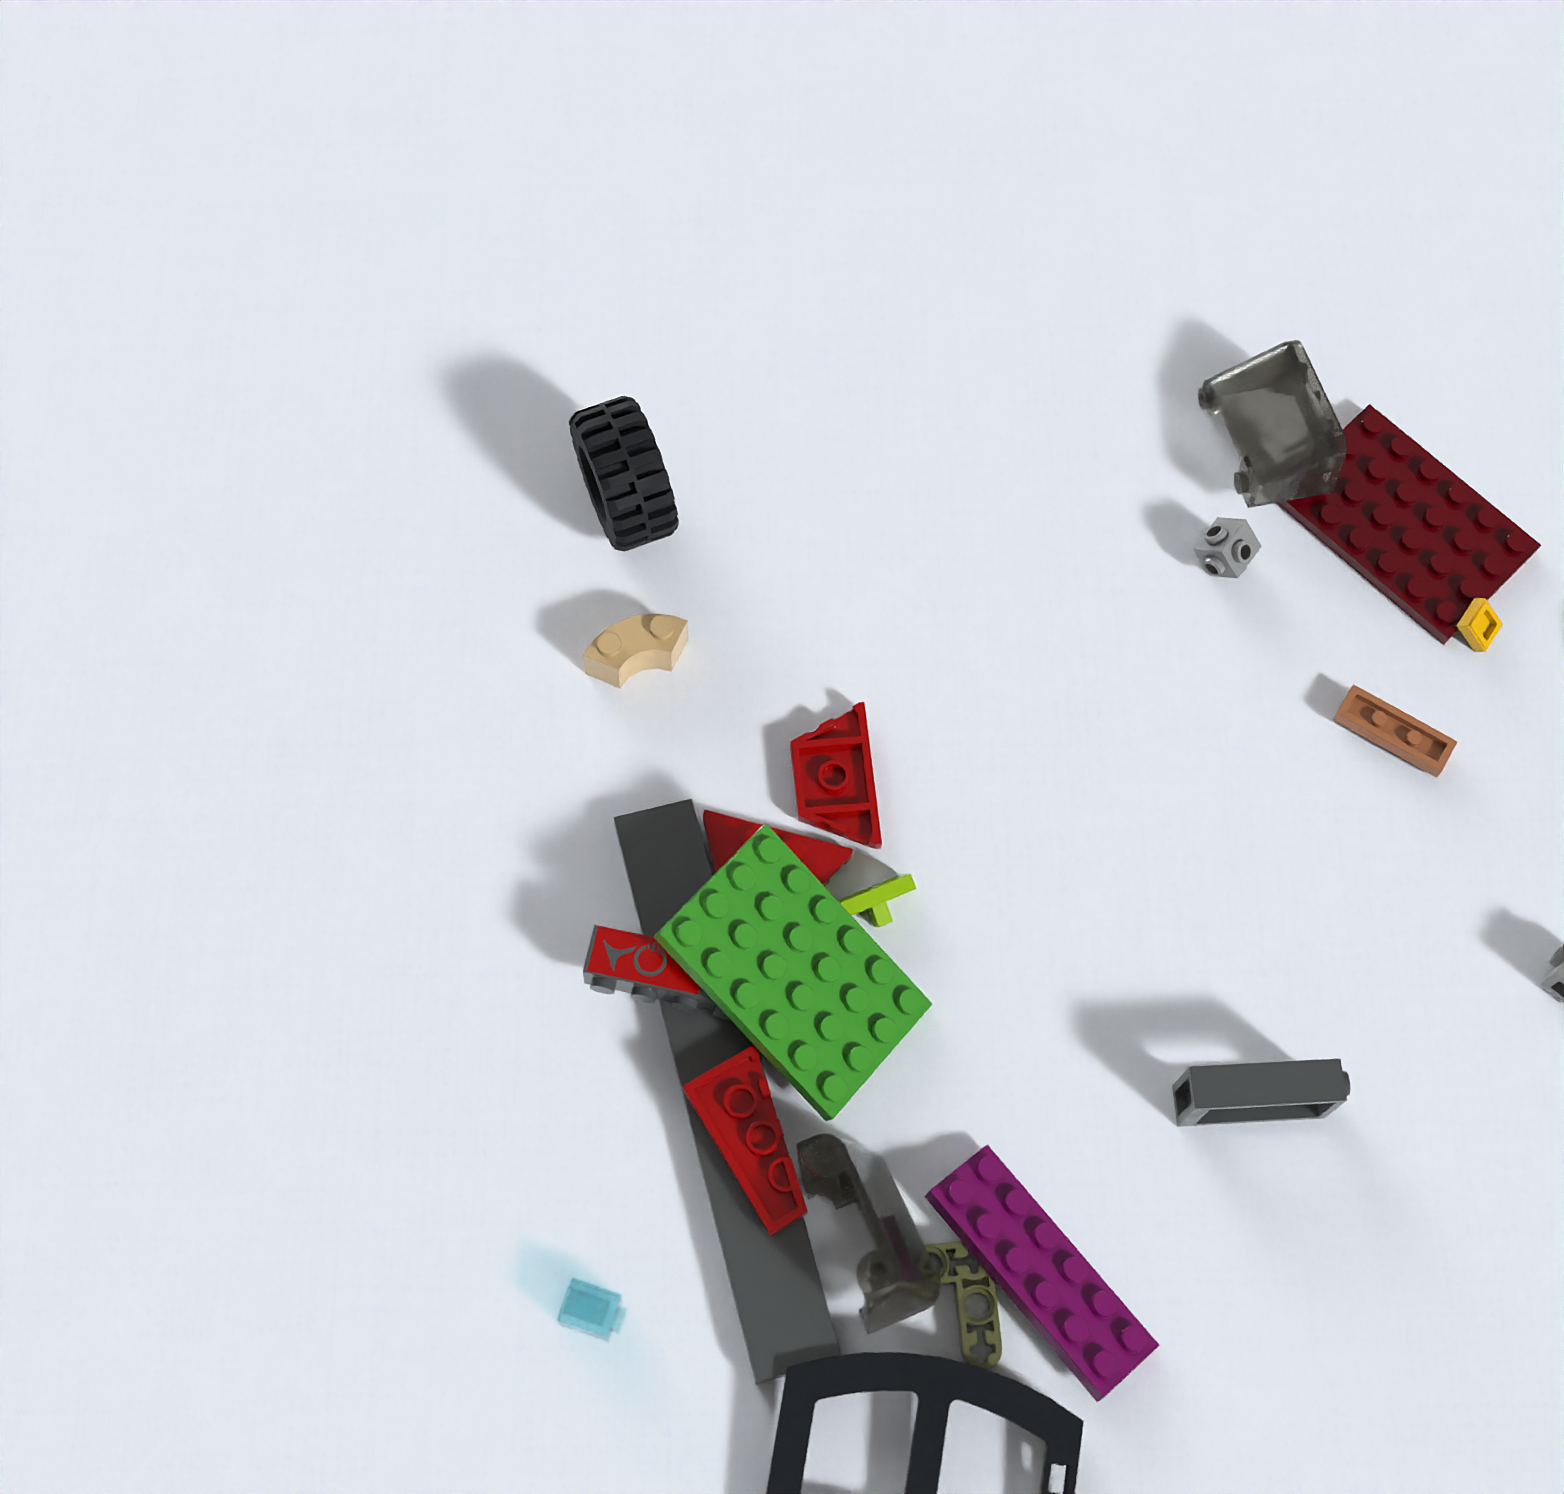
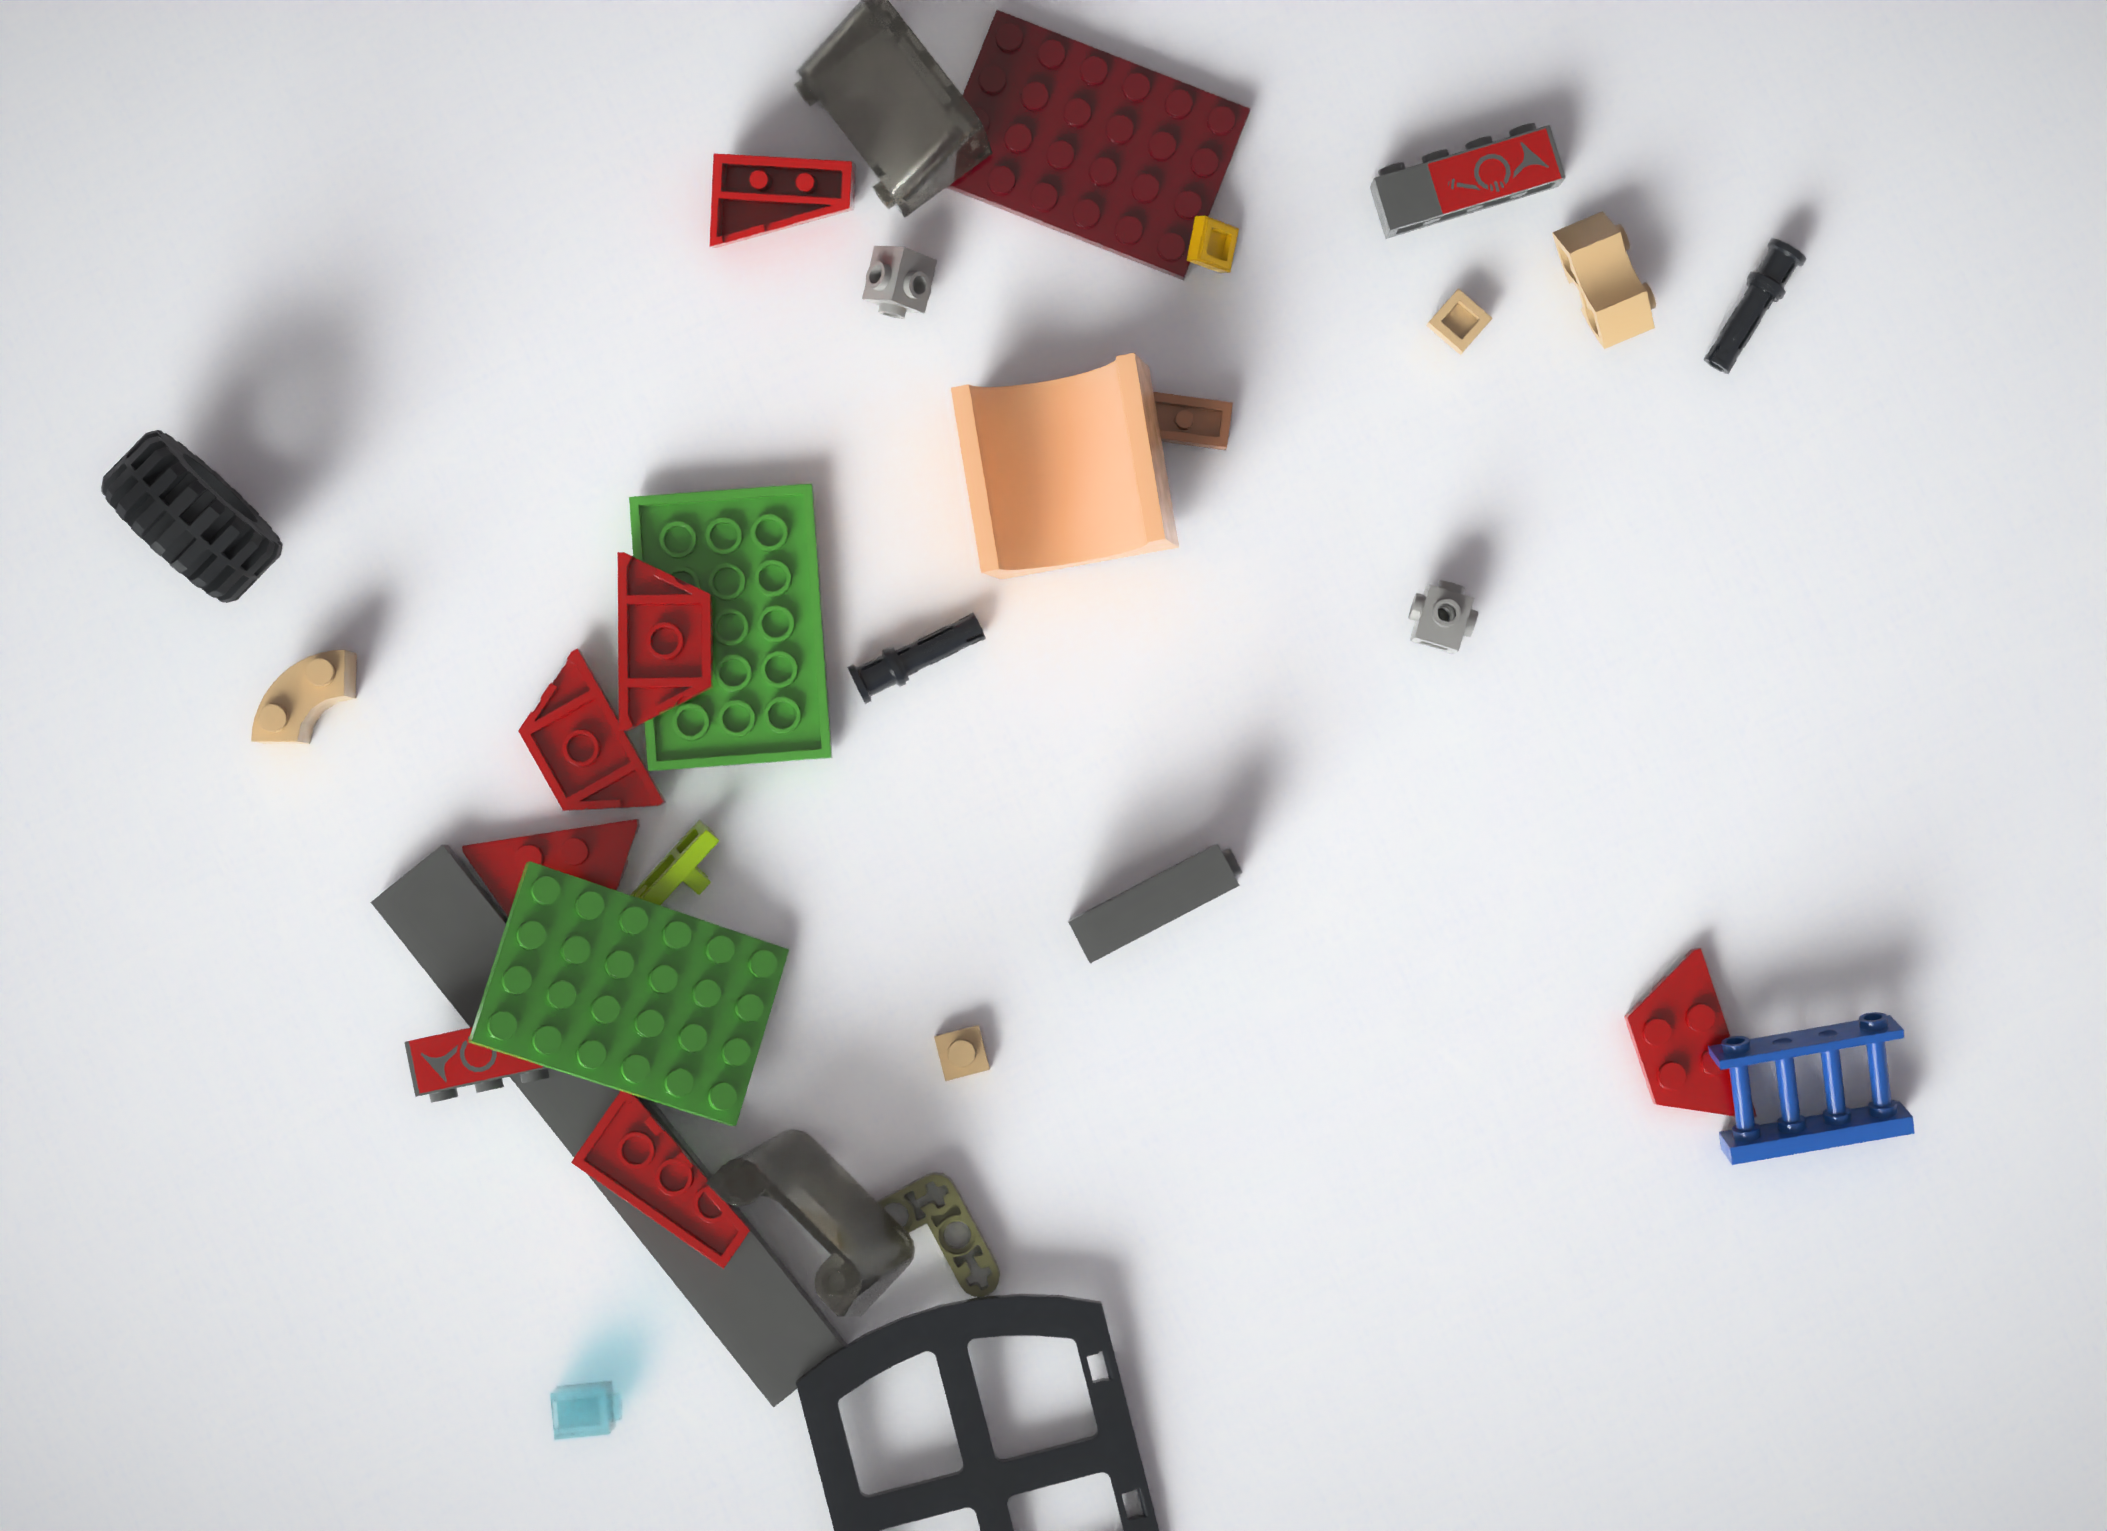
camera: 15 degrees left, 20 degrees up
(934, 721) = (661, 641): none -> red wing
(990, 742) = (769, 659): none -> bright green plate
(1041, 1153) = (962, 1052): none -> tan plate
(1042, 1272) = (1005, 1174): magenta plate -> none
(1112, 823) = (897, 665): none -> black pin
(1158, 452) = (774, 194): none -> red wedge
(1315, 732) = (1065, 470): none -> light nougat piece

